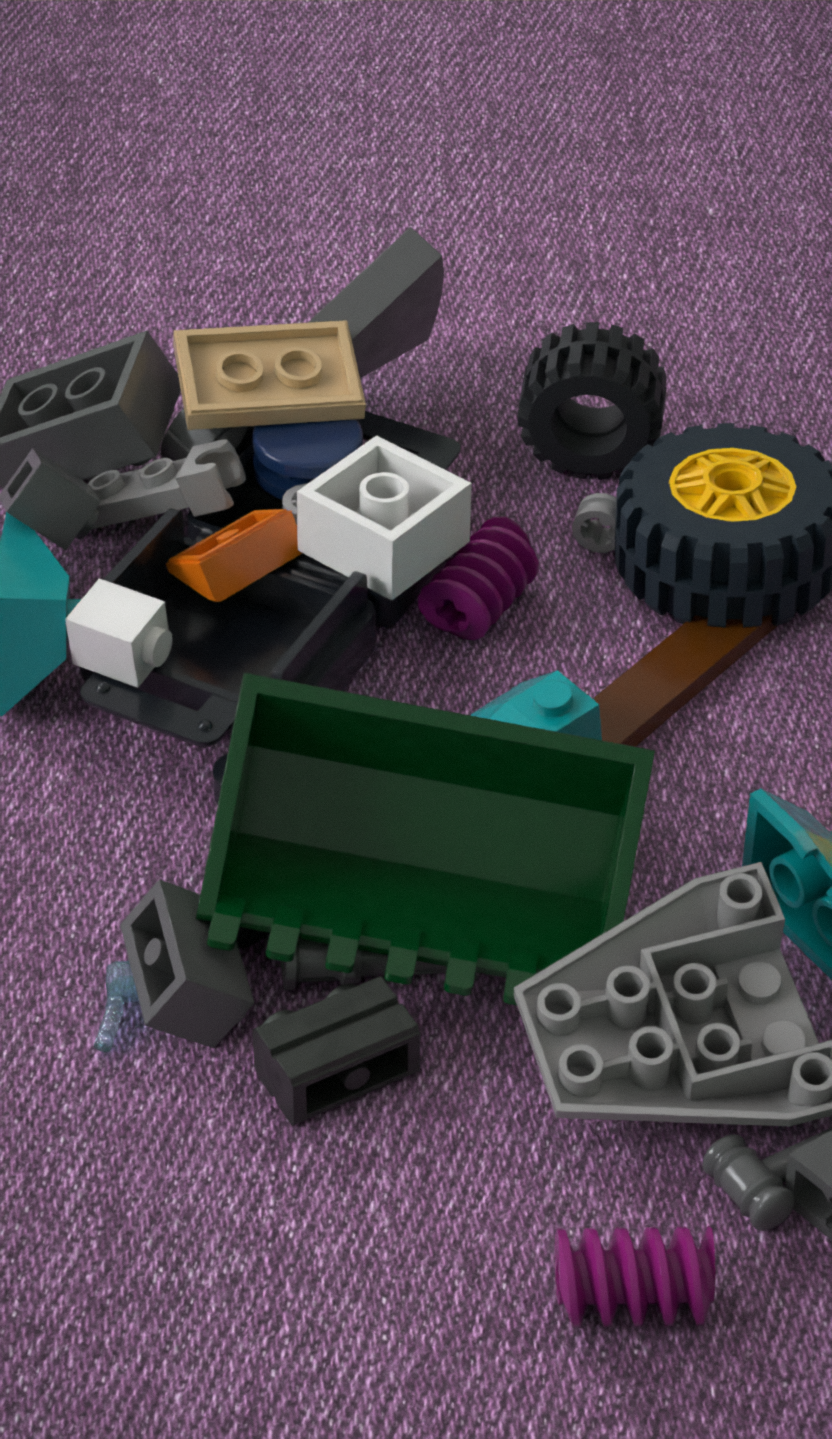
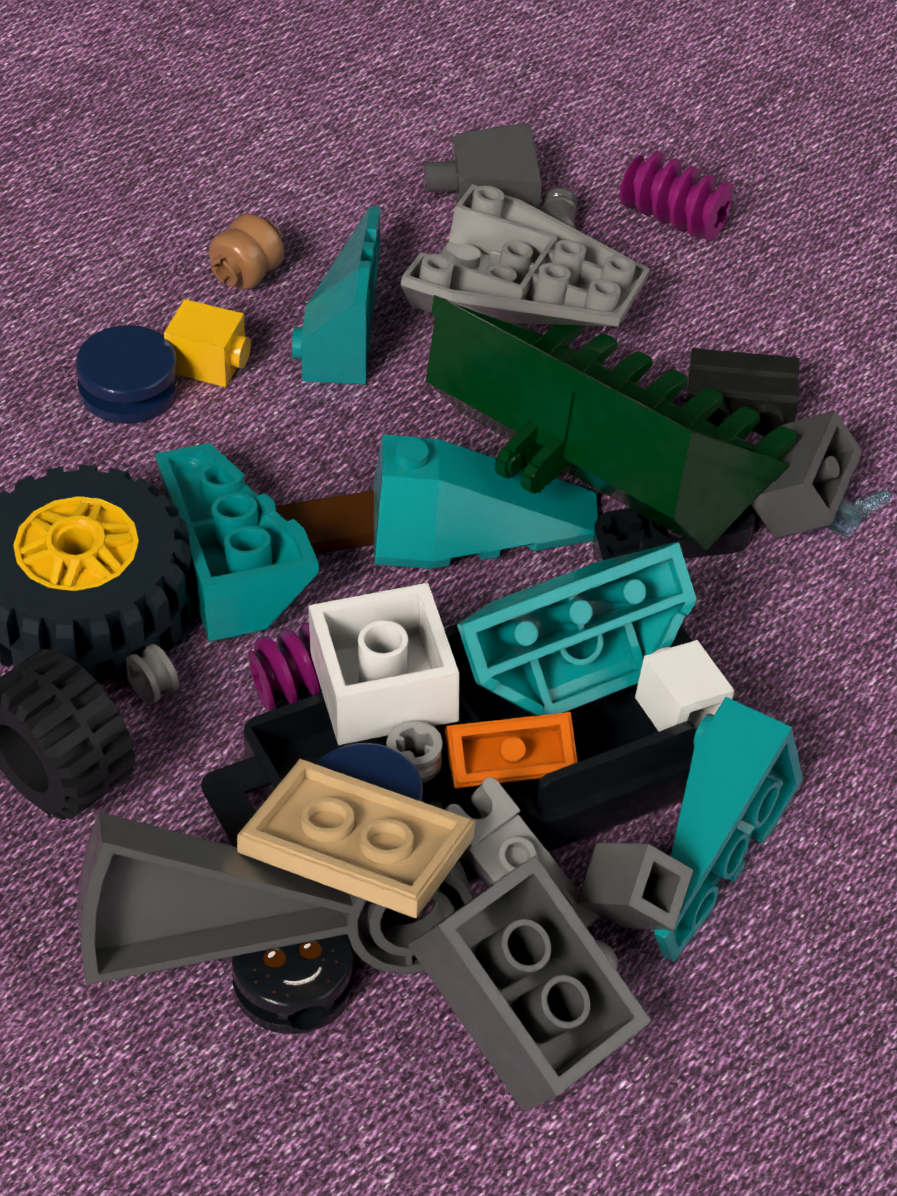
camera: 145 degrees left, 5 degrees up
(261, 597) = (579, 630): none -> teal wedge
(649, 606) = (242, 551): none -> teal wedge

